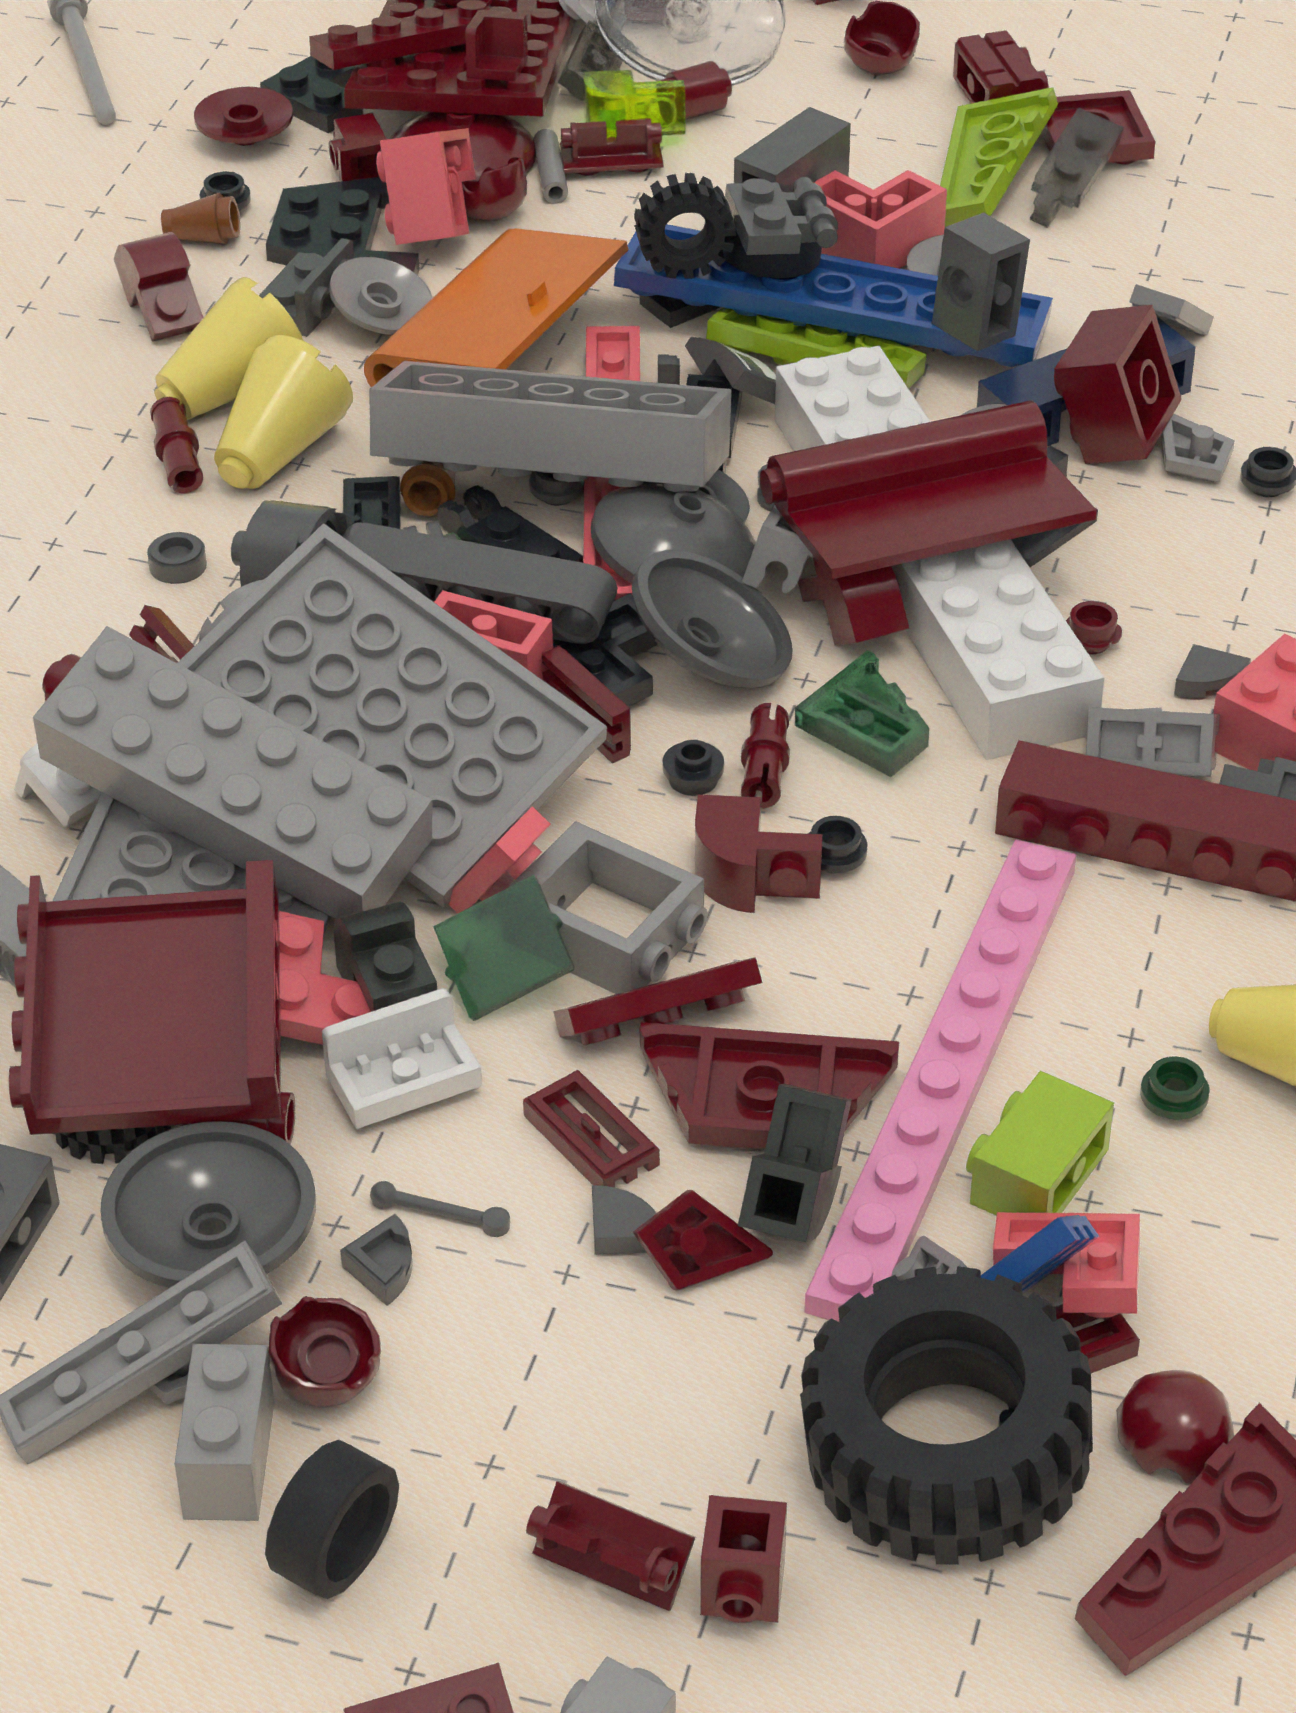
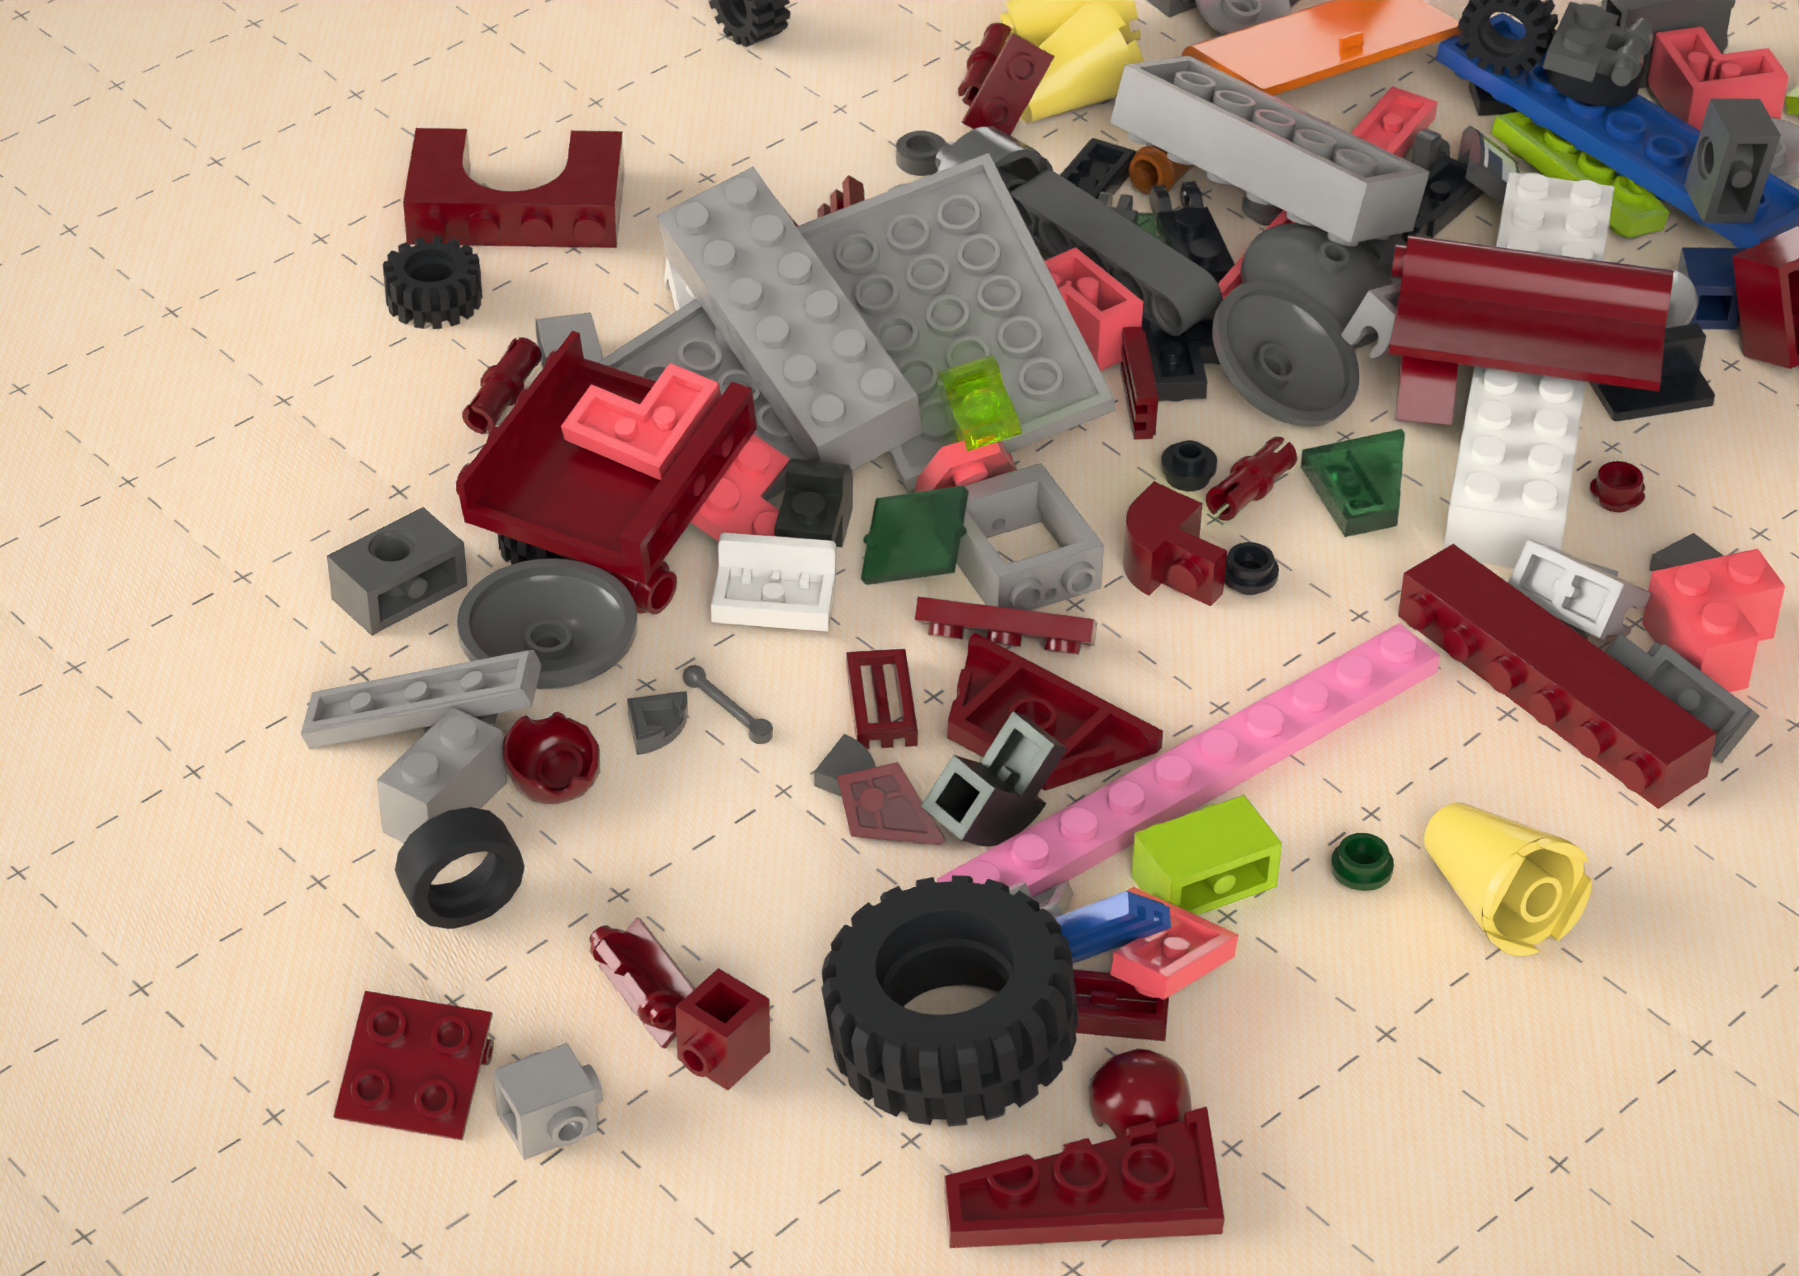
camera: 30 degrees right, 0 degrees up
(182, 956) = (647, 433): none -> coral plate
(235, 459) = (1008, 85): none -> dark red hinge
(499, 787) = (977, 403): none -> clear neon green brick

